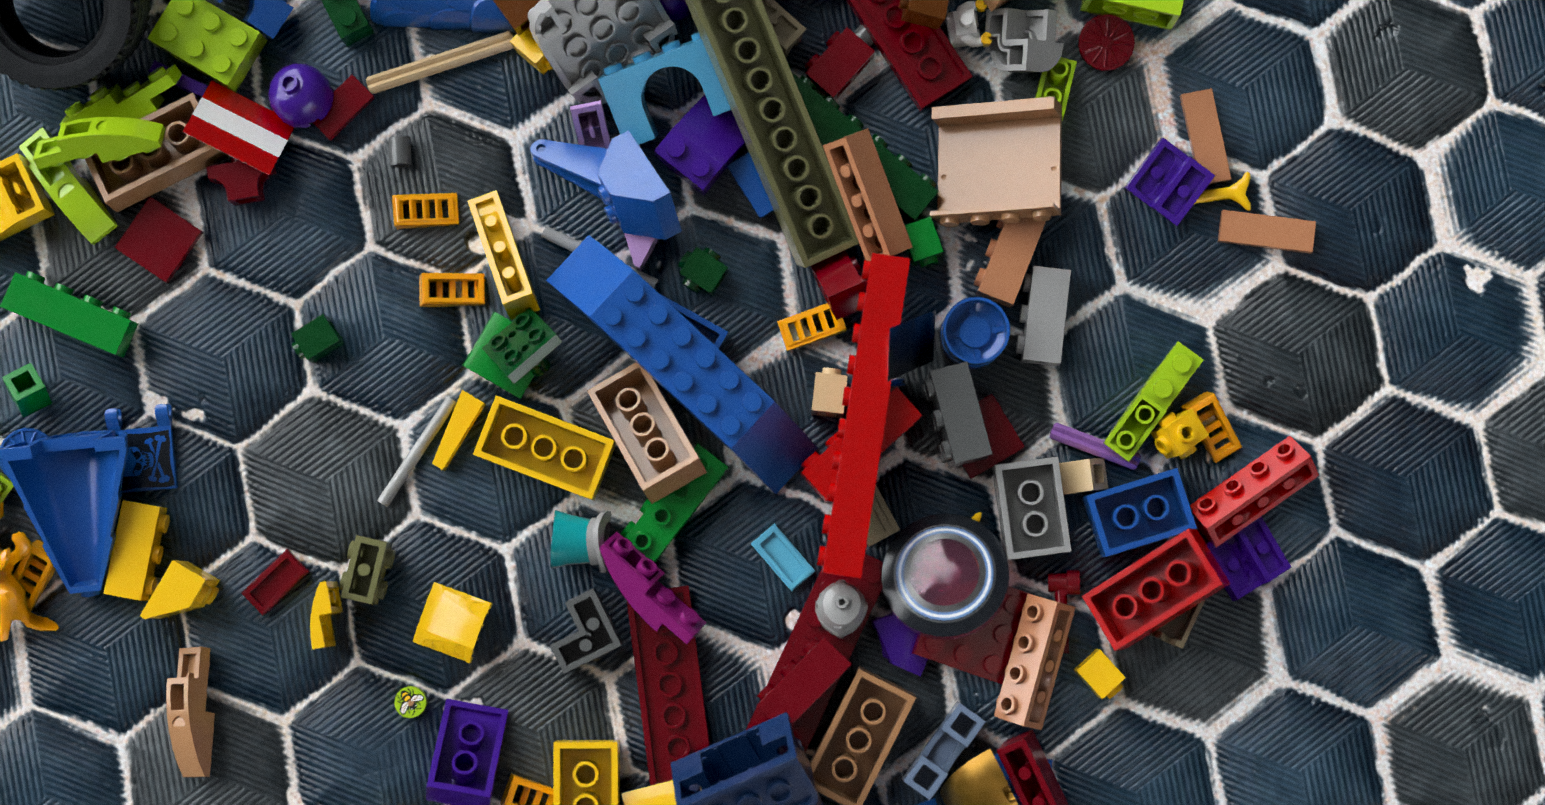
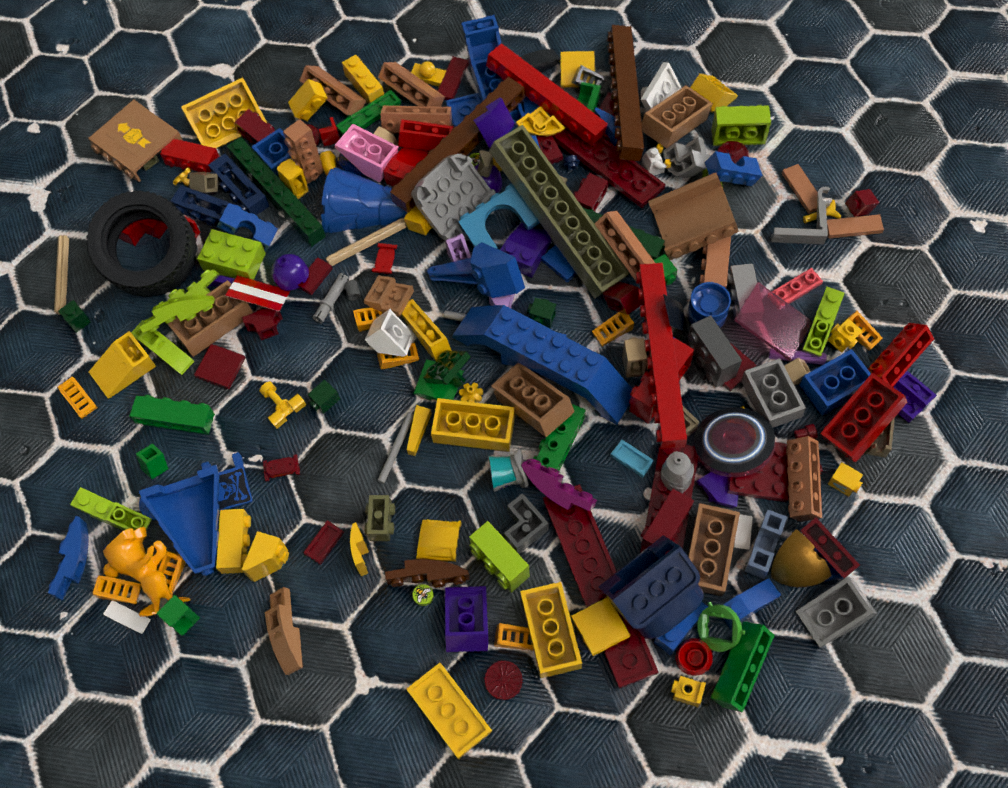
camera: 10 degrees left, 20 degrees down
(36, 654) = (178, 615): none -> green panel
(230, 441) = (281, 467): none -> dark red piece
(251, 341) = (283, 407): none -> yellow bar
(361, 158) = (327, 303): none -> light grey pin
(435, 673) = (435, 571): none -> reddish brown slope
(443, 259) = (389, 335): none -> white slope
(457, 178) = (388, 294): none -> medium nougat slope
(465, 102) = (384, 258): none -> red piece
(534, 678) = (499, 557): none -> lime brick
(559, 392) = (471, 393): none -> yellow plant
(920, 715) = (743, 532): none -> white sticker
(1071, 82) = (743, 172): none -> blue arch
(1071, 383) = (773, 321): none -> clear pink piece
(1112, 331) = (798, 286): none -> coral tile
(1169, 181) = (791, 211): dark purple slope -> none
(1210, 219) = (807, 236): none -> light grey hinge
(1291, 195) = (862, 202): none -> dark red brick

